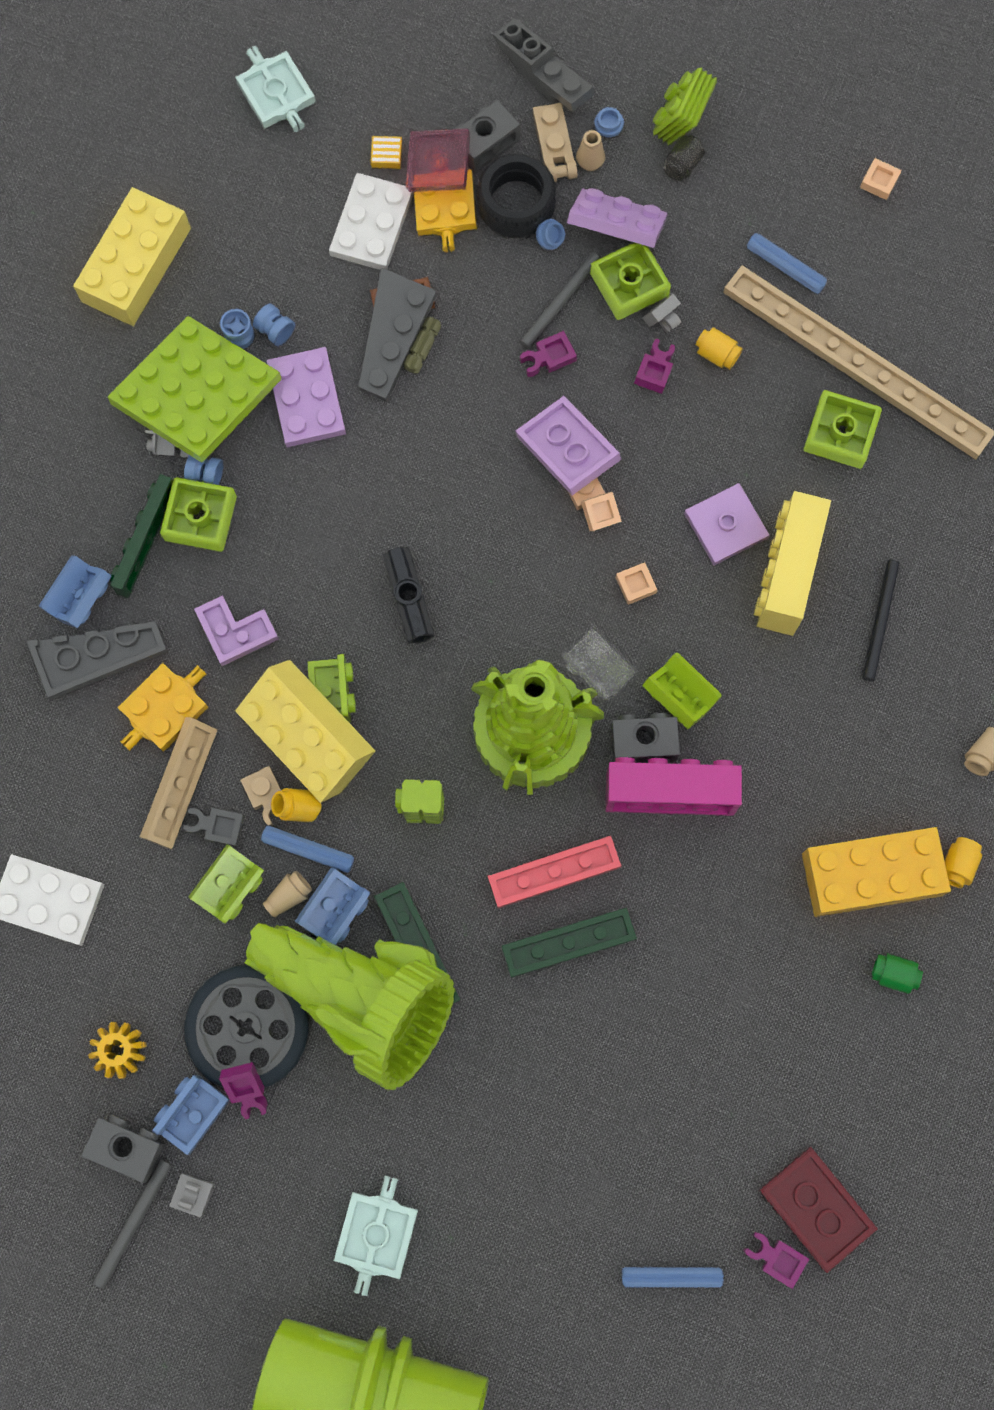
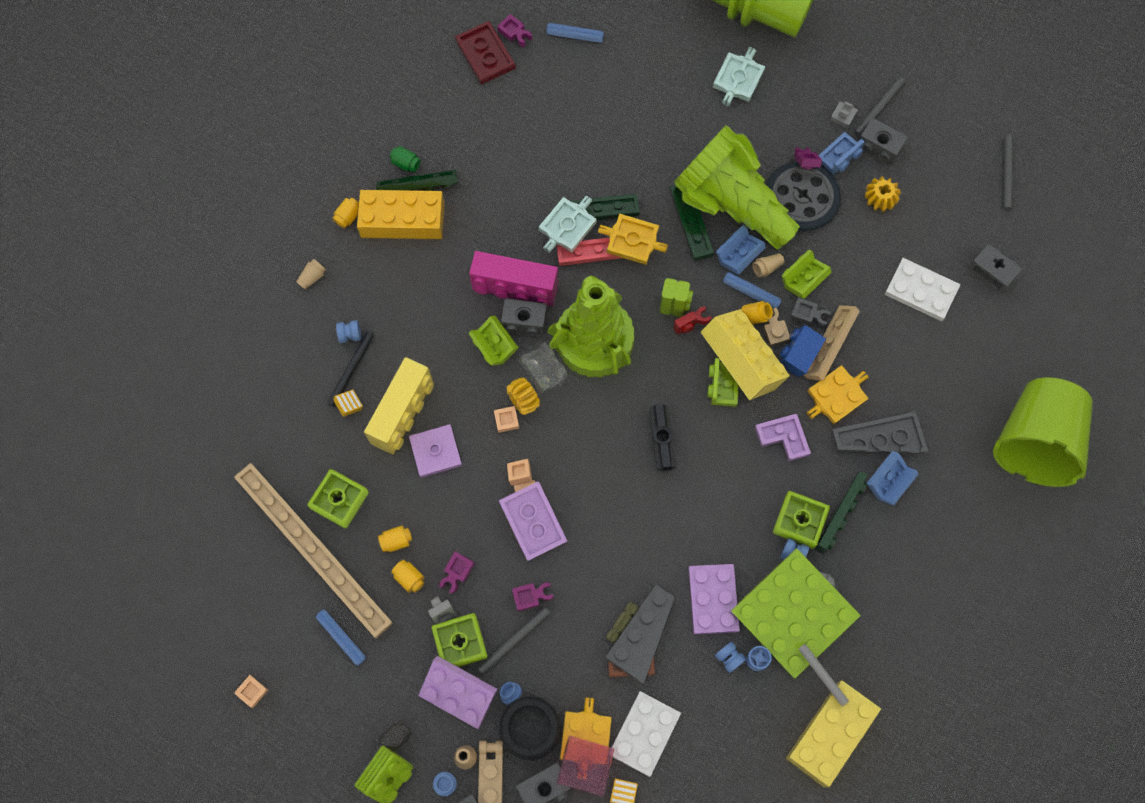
camera: 170 degrees left, 5 degrees down
(150, 309) = (823, 675): none -> light grey bar
(222, 758) = (801, 350): none -> blue brick
(397, 773) = (688, 322): none -> red plate
(503, 888) = (632, 239): none -> yellow plate
(609, 894) = (567, 224): none -> light aqua plate
(619, 613) = (523, 396): none -> yellow gear
(749, 392) = (395, 539): none -> yellow brick
(866, 935) = (423, 181): none -> dark green plate
(869, 566) = (348, 403): none -> yellow tile
(899, 670) = (349, 331): none -> medium blue wheel

